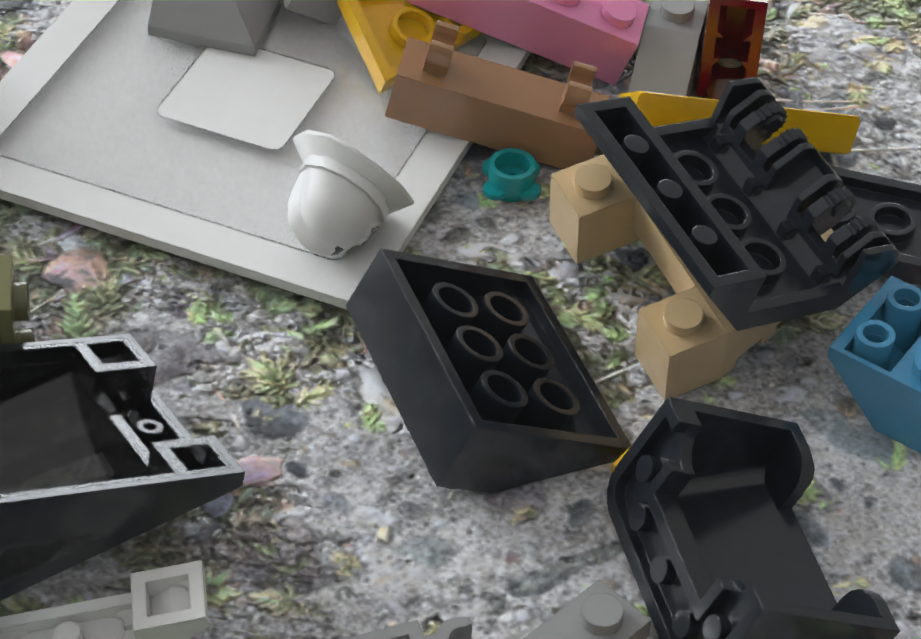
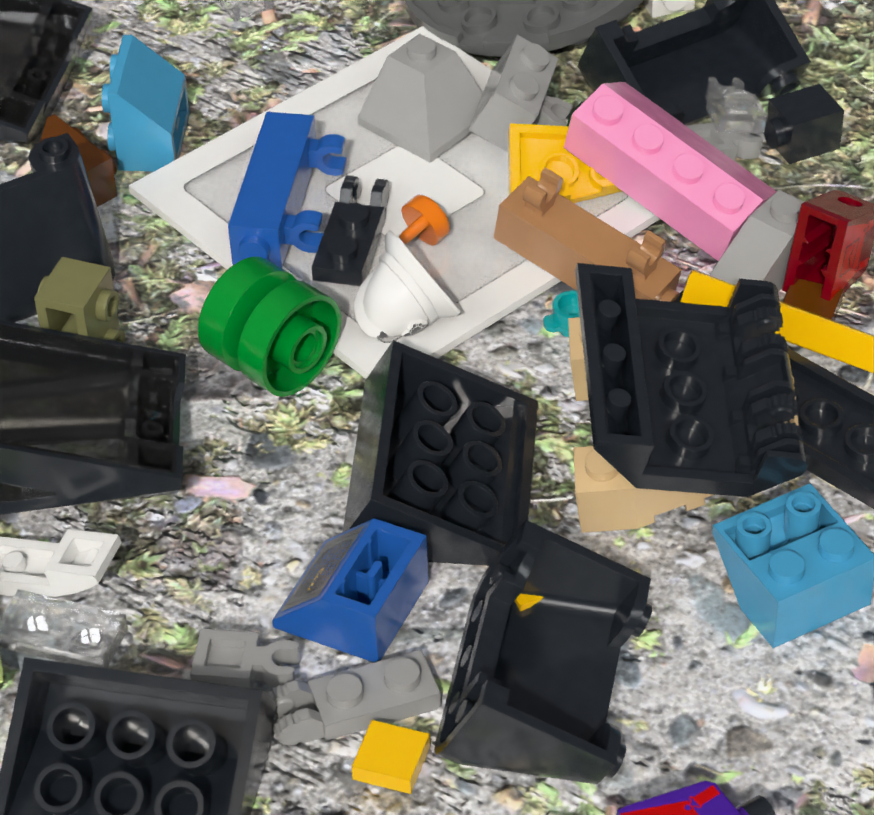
camera: 30 degrees right, 0 degrees up
(115, 126) = (274, 187): none -> blue brick
(212, 274) = (269, 326): none -> green wheel
(227, 154) = (351, 235): none -> black hinge
(299, 111) = (424, 220): none -> orange tile
(490, 535) = (358, 589): none -> blue slope

